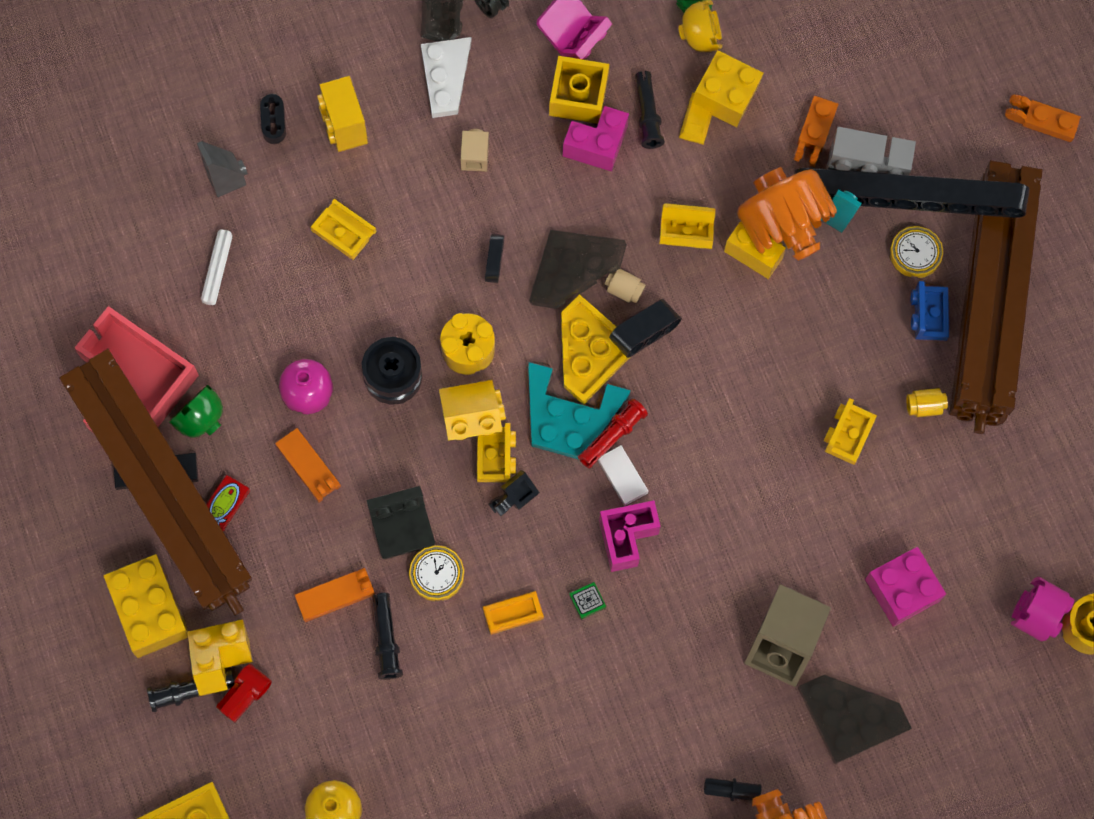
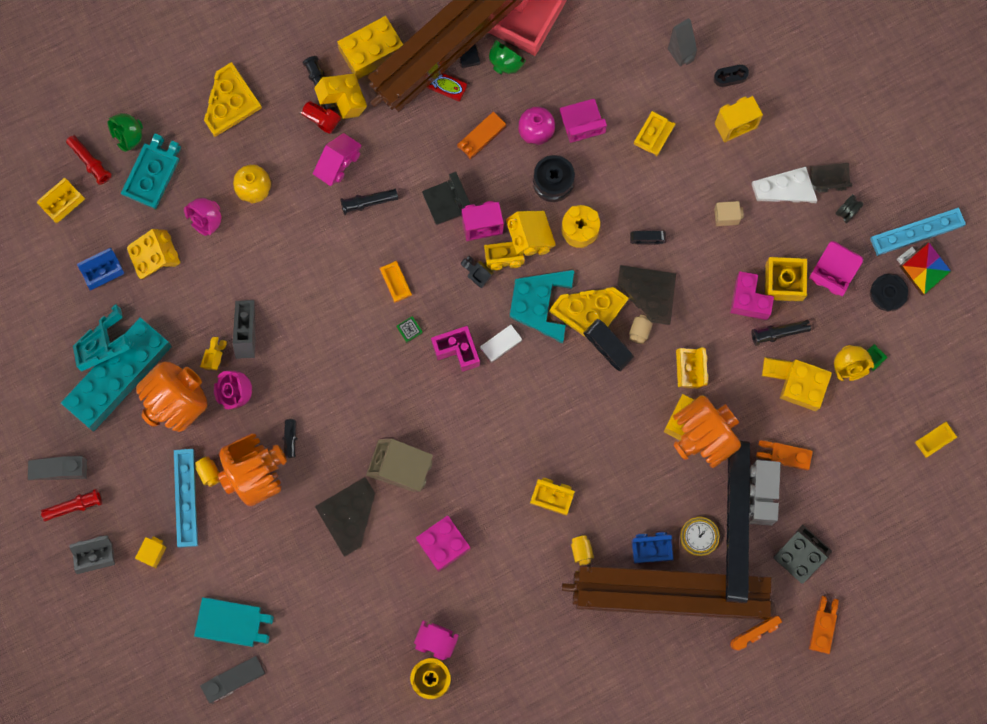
camera: 85 degrees right, 5 degrees up
(216, 267) = (614, 55): white axle -> none
(308, 322) = (582, 120): none -> dark pink bracket
(318, 673) = (335, 158): none -> dark pink brick
(334, 595) = (394, 165): orange hinge -> none
(436, 573) = (416, 228): tile -> none
(444, 472) = (482, 220): none -> dark pink brick
(620, 425) = (537, 337): red pin -> none
(846, 206) = (719, 474): teal slope -> none
(951, 127) = (802, 554): none -> pearl dark grey bracket
(1052, 205) = (754, 633): none -> orange hinge

